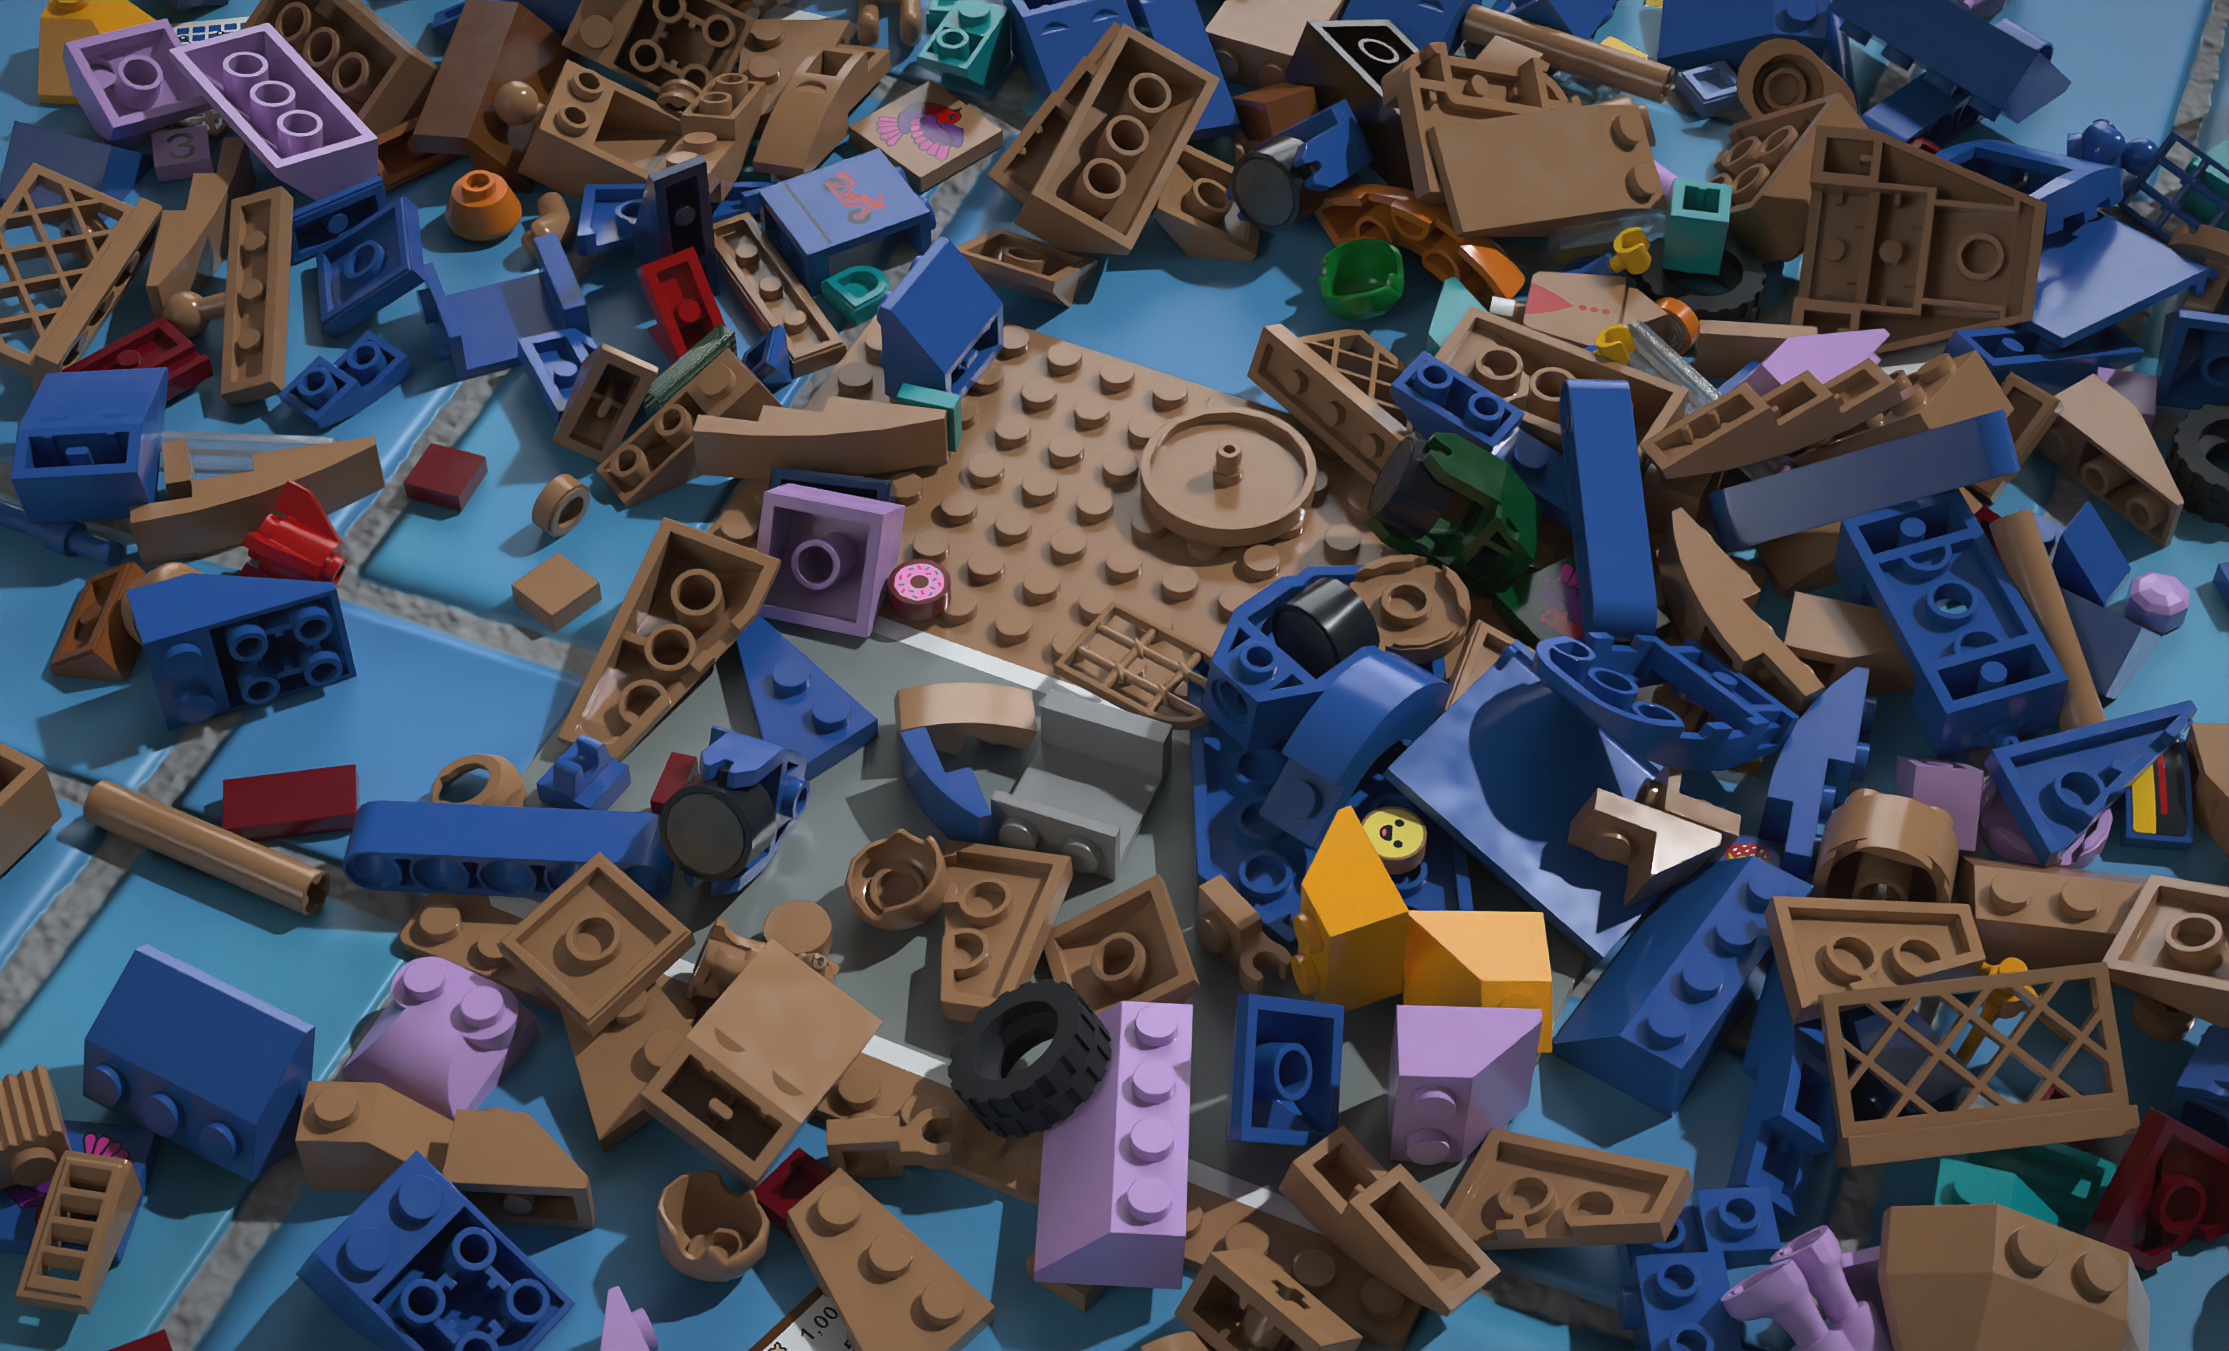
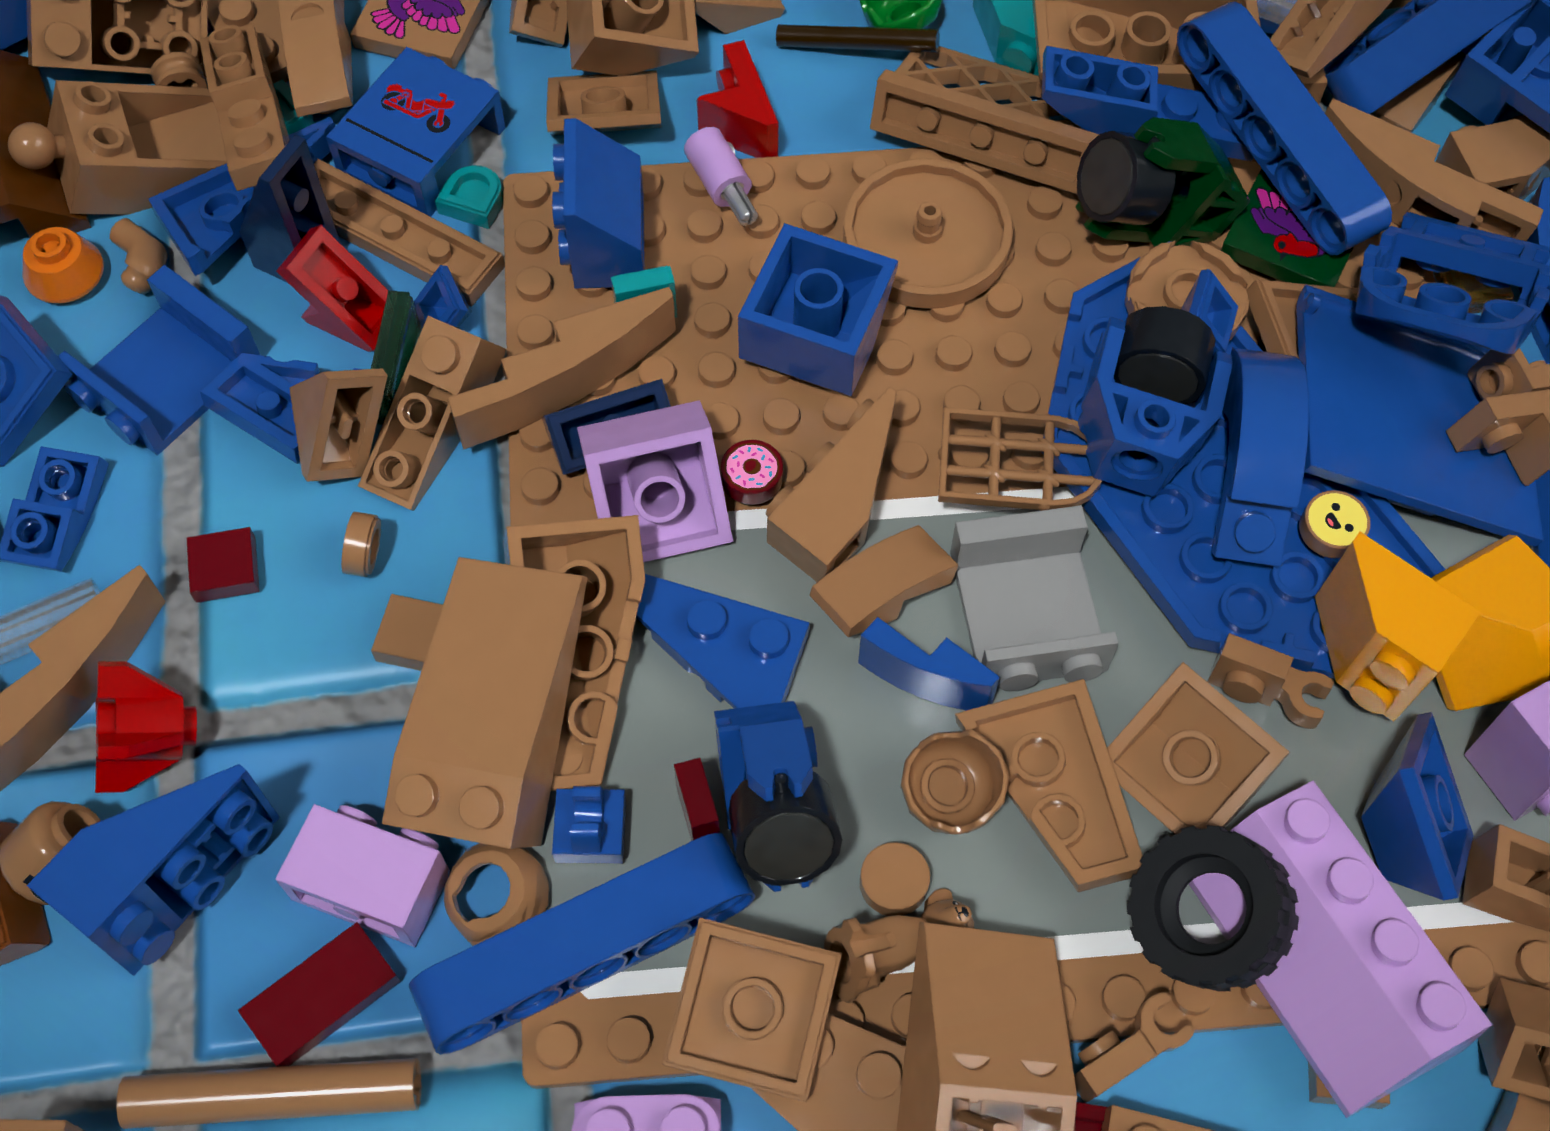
camera: 30 degrees left, 15 degrees up
(384, 730) = (365, 873): none -> lavender brick
(557, 649) = (488, 707): none -> medium nougat slope
(984, 628) = (832, 506): none -> medium nougat slope
(1061, 481) = (816, 309): none -> blue slope
(1077, 351) = (721, 172): none -> lavender piece
(1141, 315) = (740, 105): none -> red slope
(1298, 301) = (858, 38): none -> dark brown bar
(1400, 615) = (1214, 306): none -> blue slope

